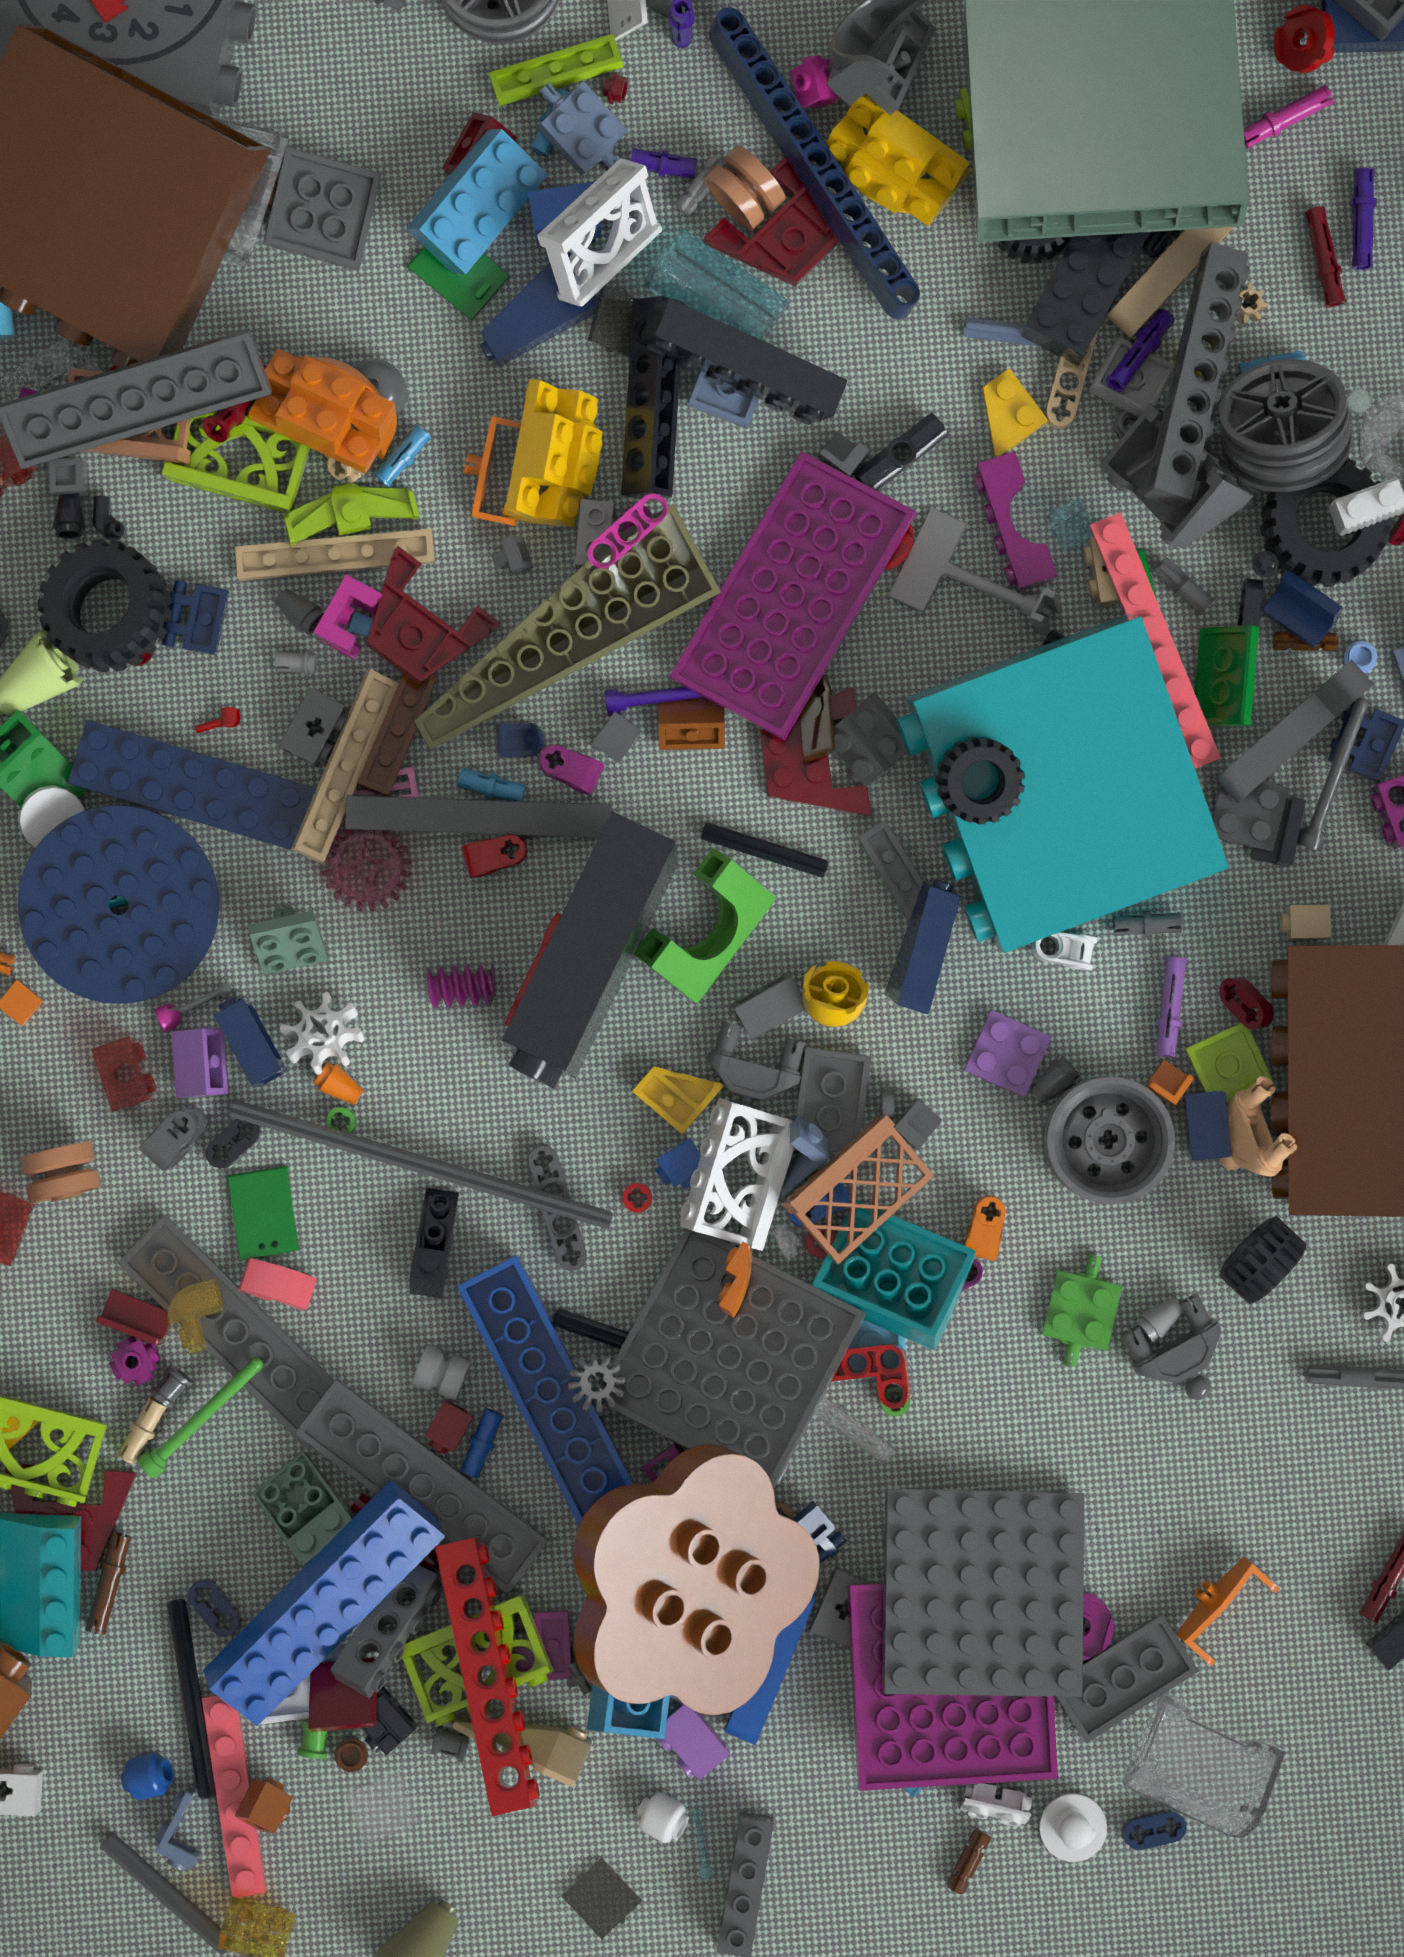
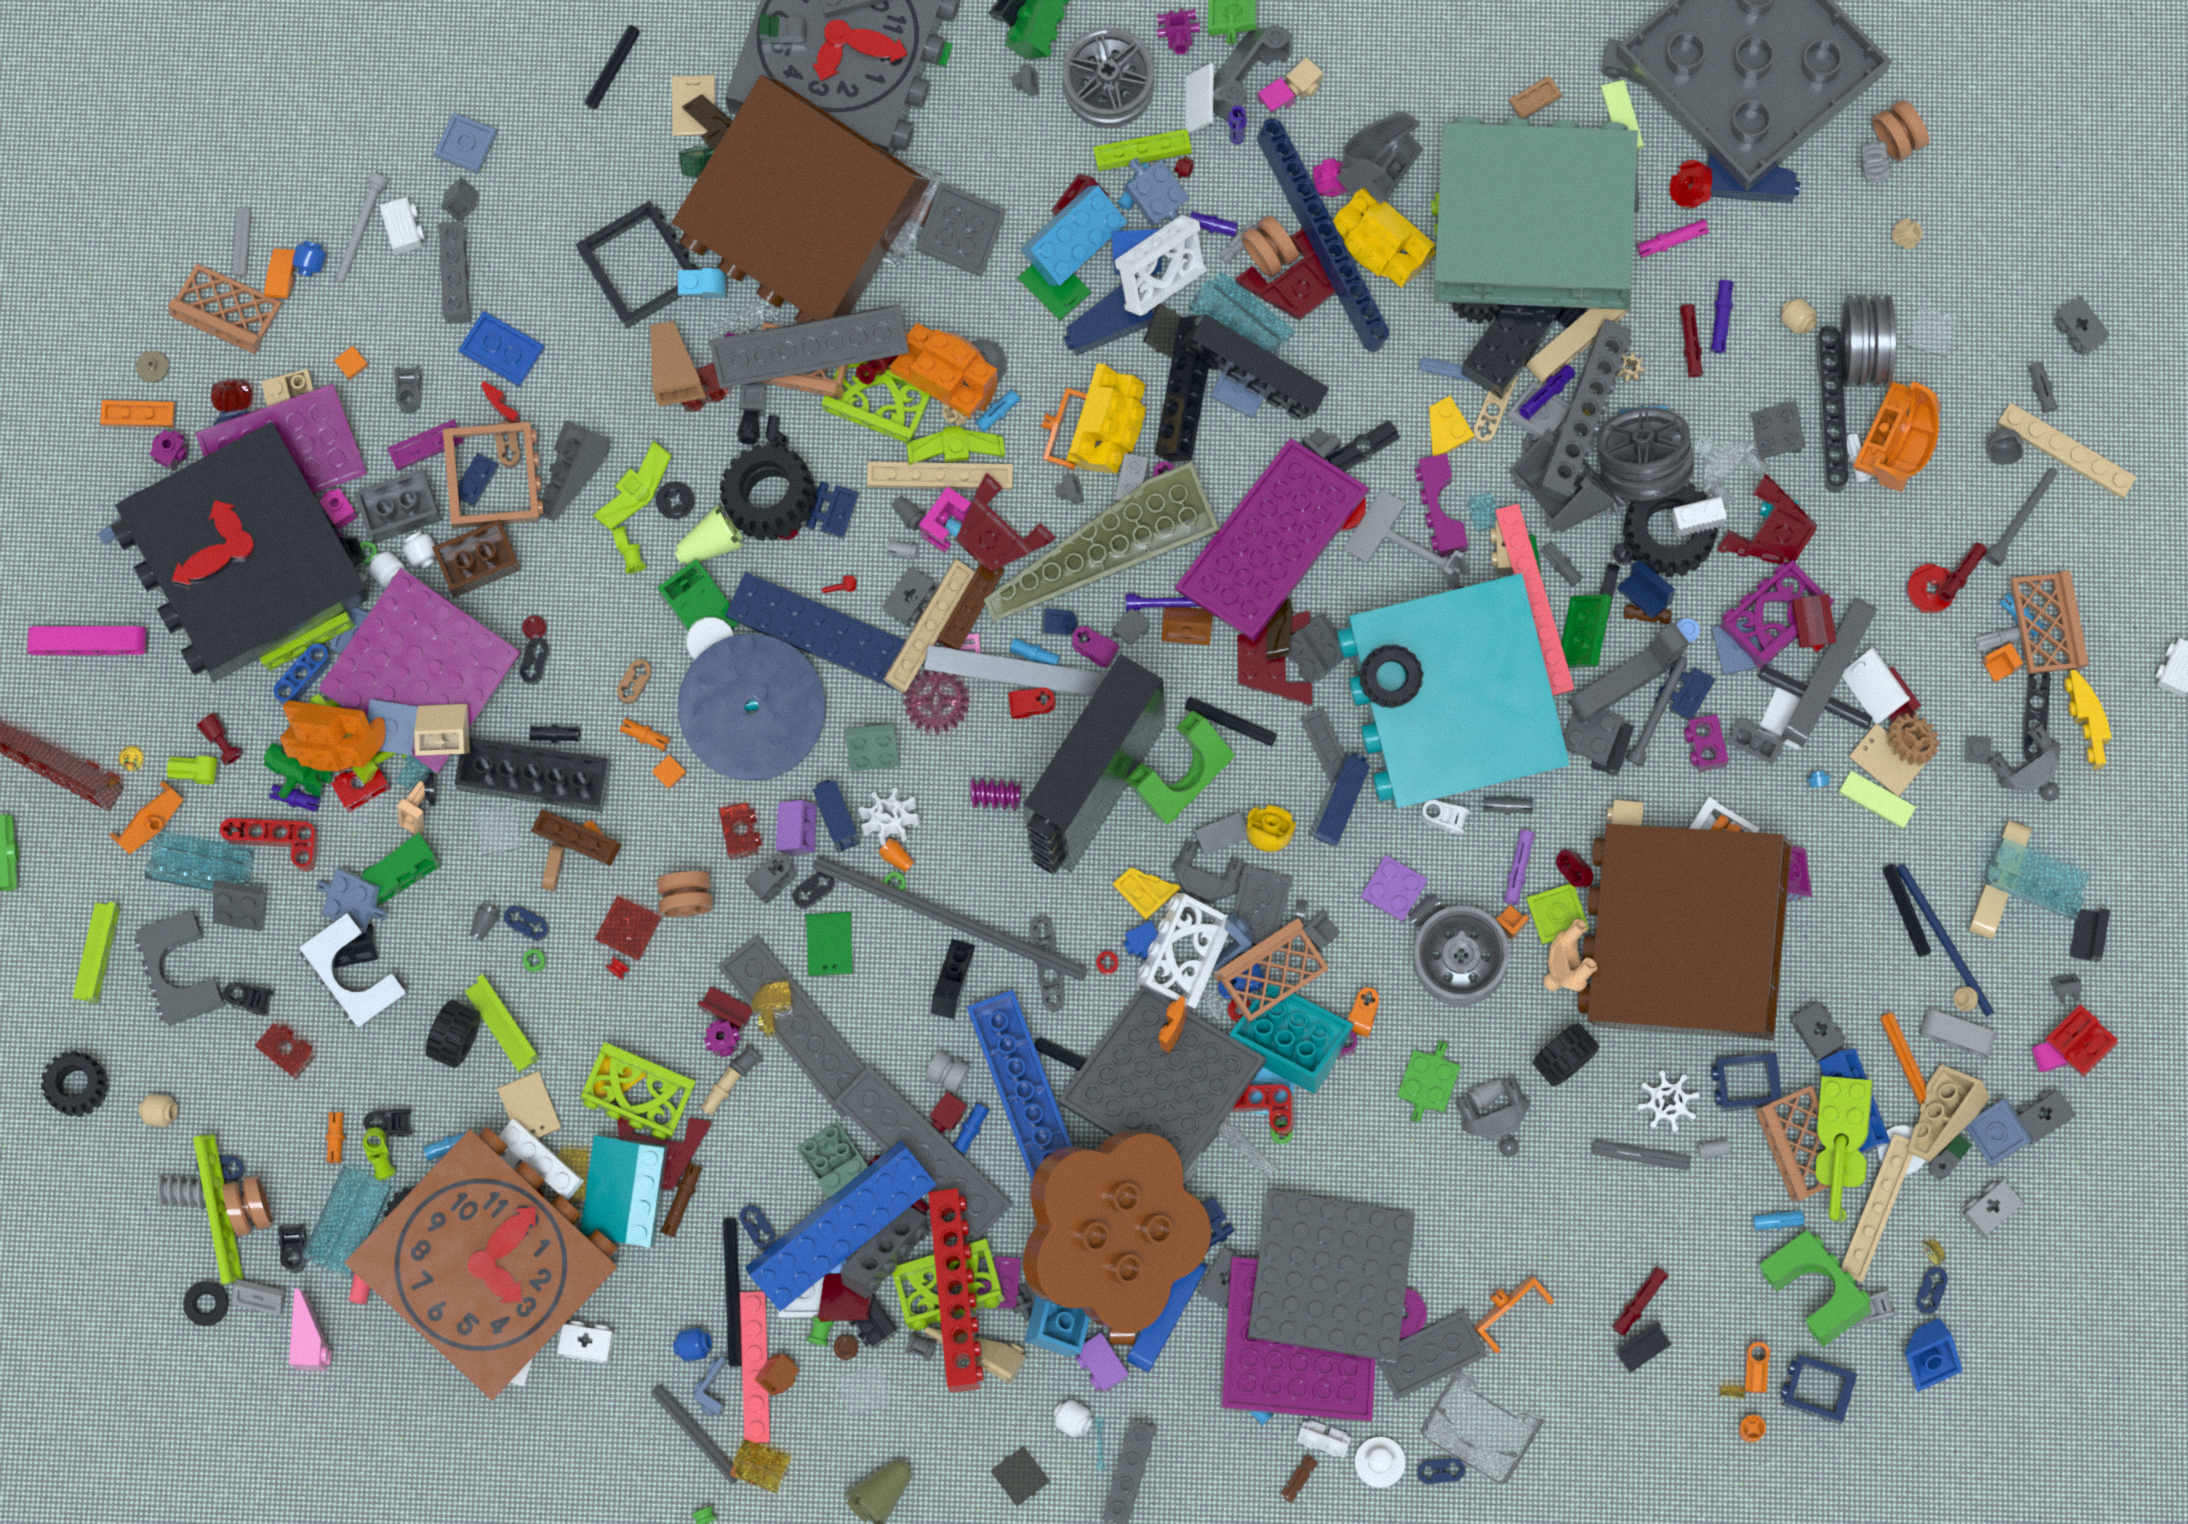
camera: 10 degrees right, 10 degrees down
(154, 1461) = (728, 1113): bright green piece -> none
(170, 1015) = (778, 793): hinge -> none
(277, 1283) = (834, 994): coral slope -> none
(585, 1386) = (1054, 1079): light grey gear -> none
(617, 544) = (1161, 465): dark pink beam -> none
(1208, 1125) = (1536, 954): dark blue panel -> none

